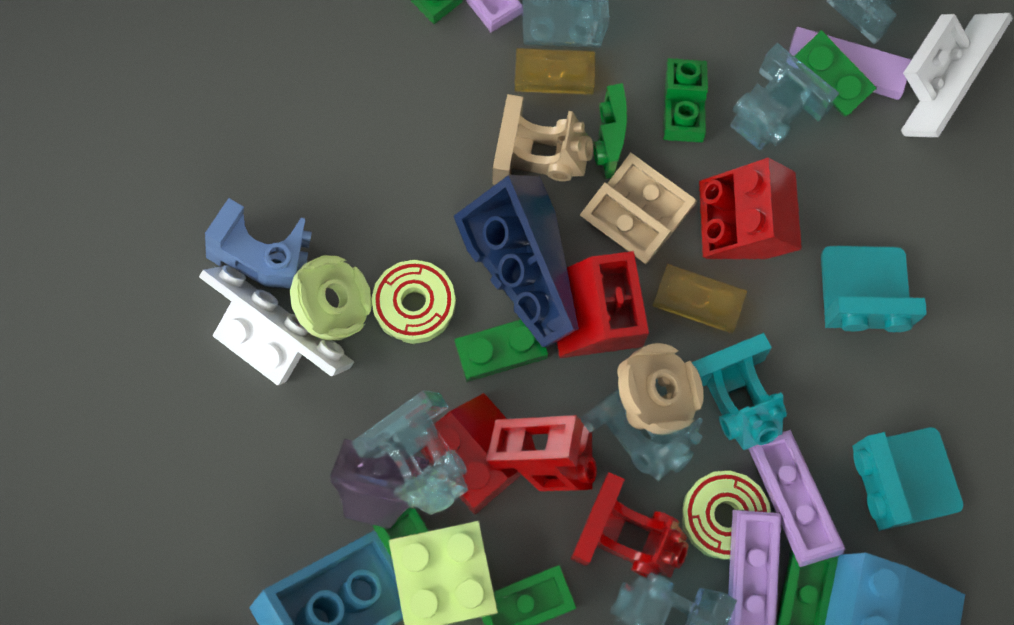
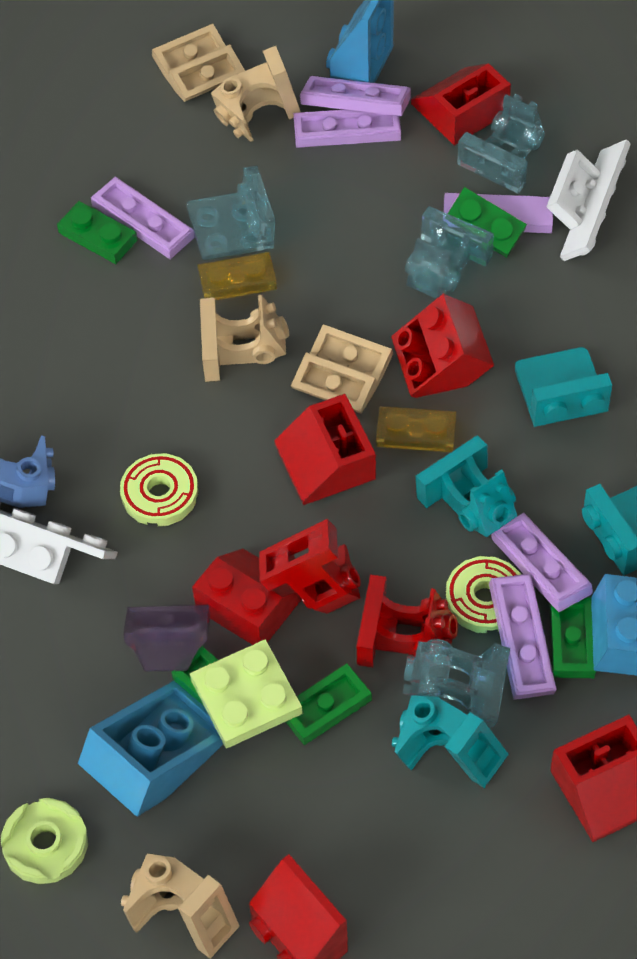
camera: 10 degrees left, 15 degrees down
(311, 304) = (73, 509): yellowish green tile -> none
(405, 434) = (184, 577): clear light blue tile -> none
(498, 350) = (248, 509): green plate -> none
(521, 246) = (245, 422): dark blue wedge -> none
(612, 131) = (301, 306): green slope -> none
(639, 395) = (378, 489): tan plate -> none
(649, 456) = (390, 538): clear light blue tile -> none
(685, 100) = (361, 274): green slope -> none

